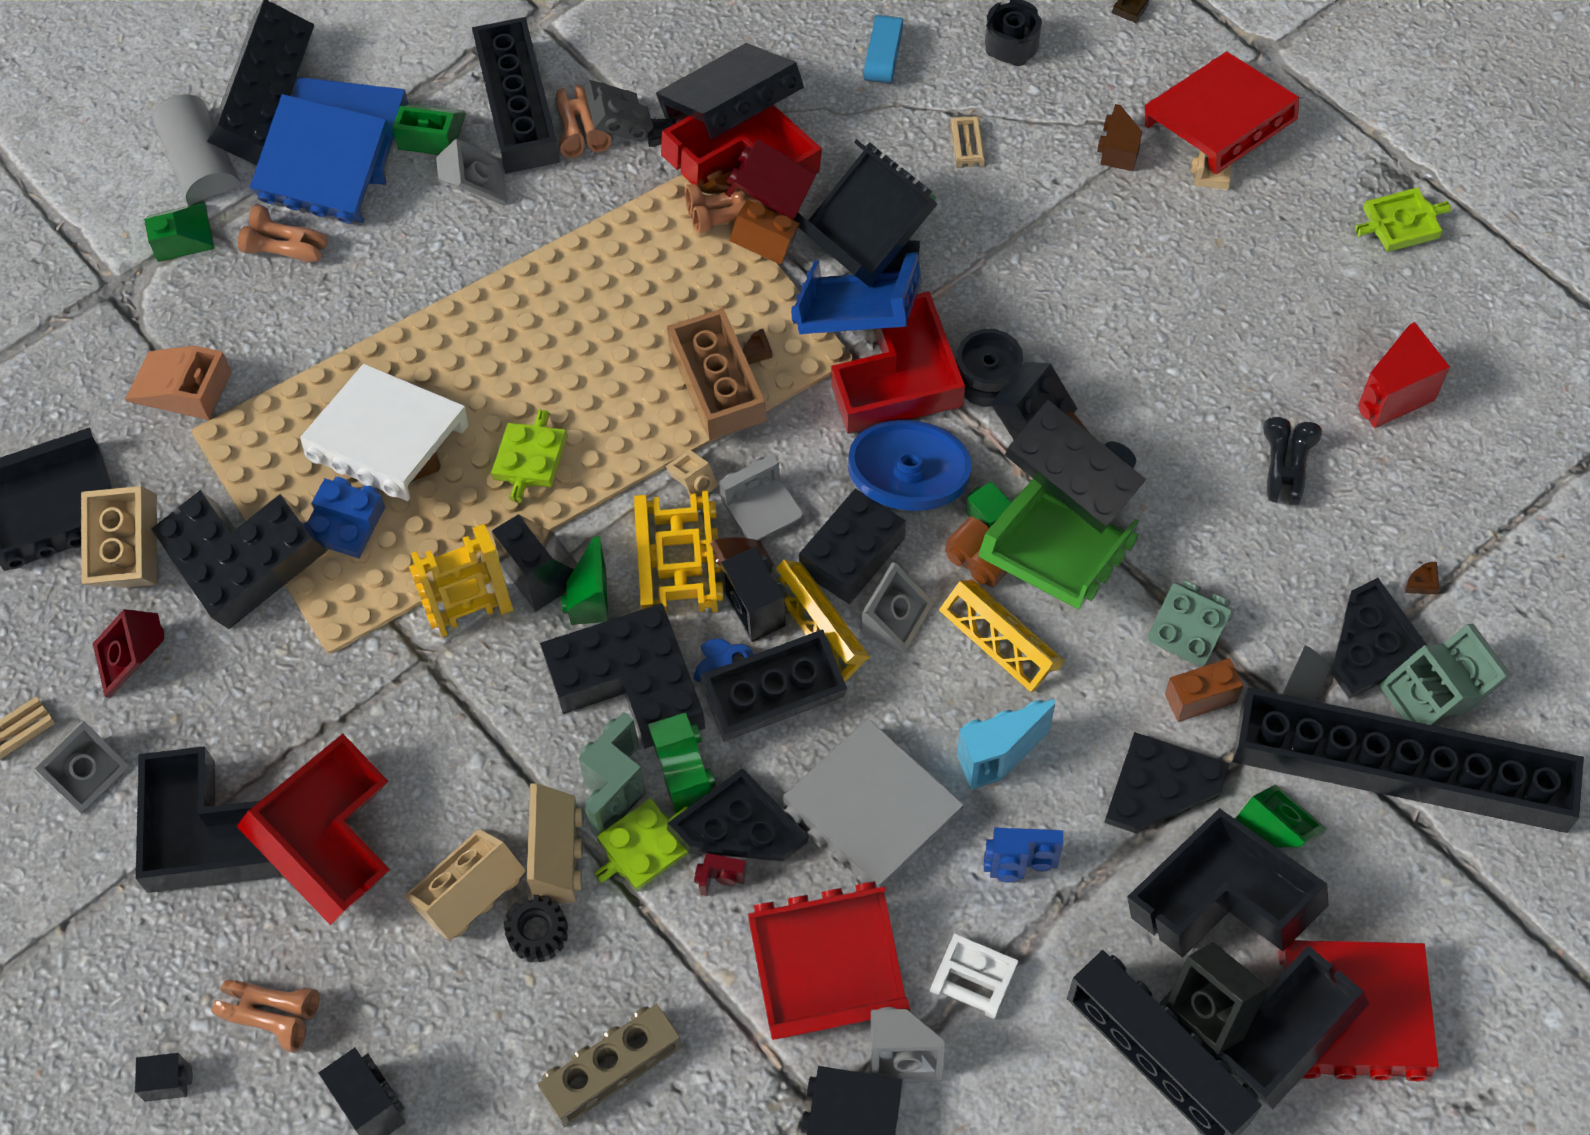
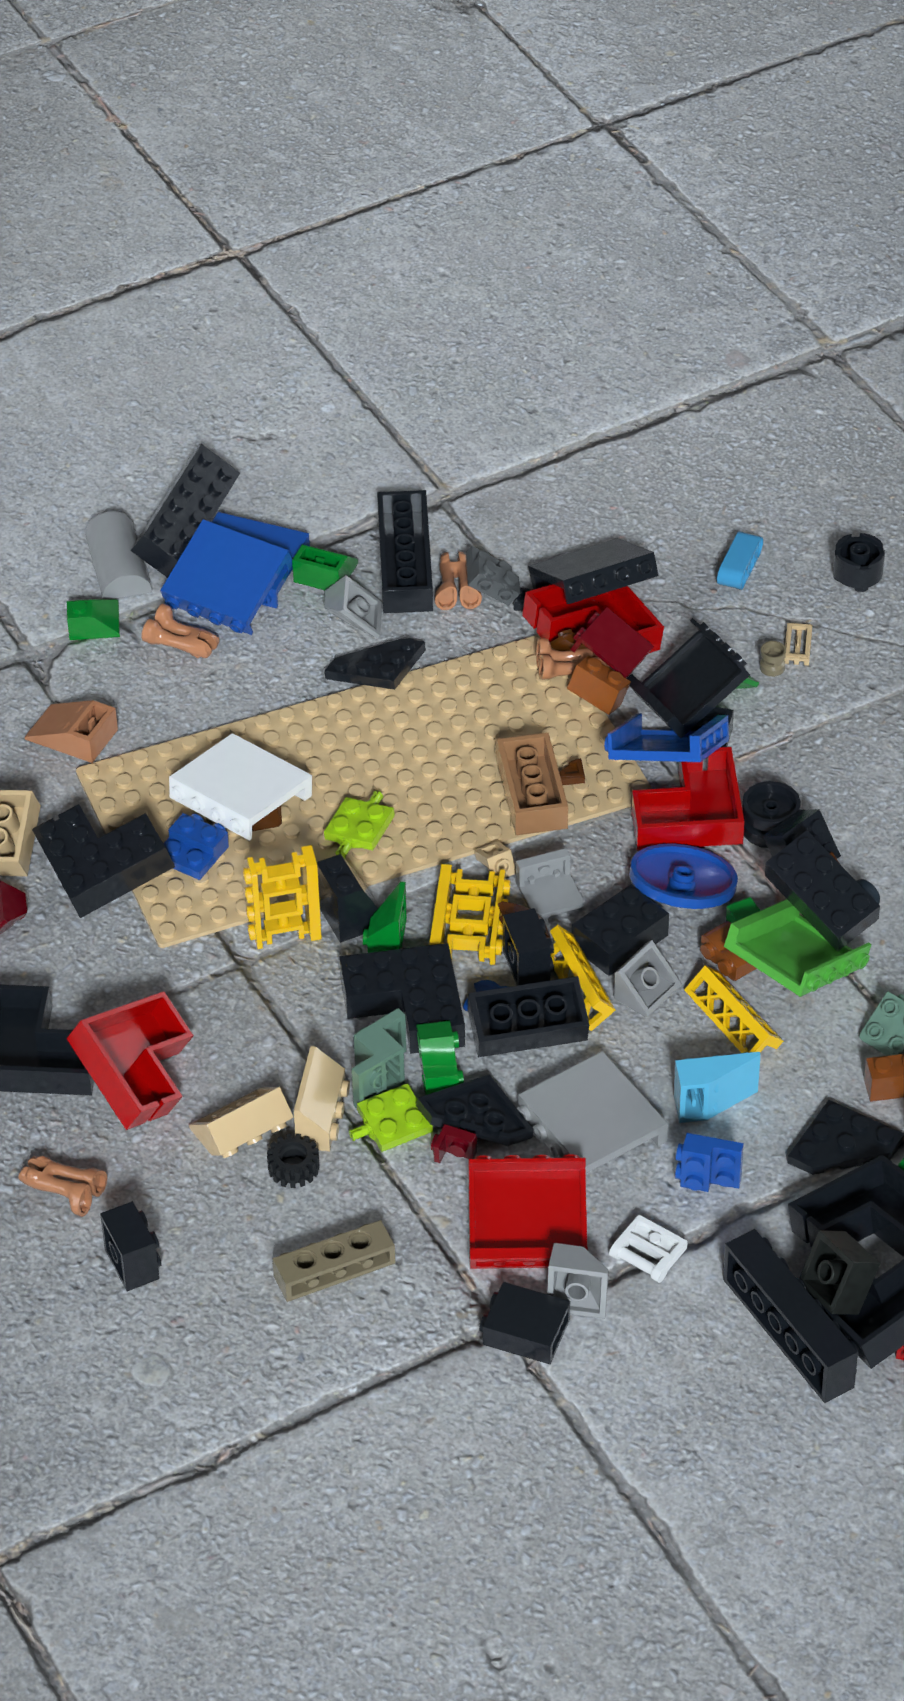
camera: 10 degrees right, 15 degrees down
(512, 242) = (377, 666): none -> black plate
(945, 165) = (772, 658): none -> dark tan wheel

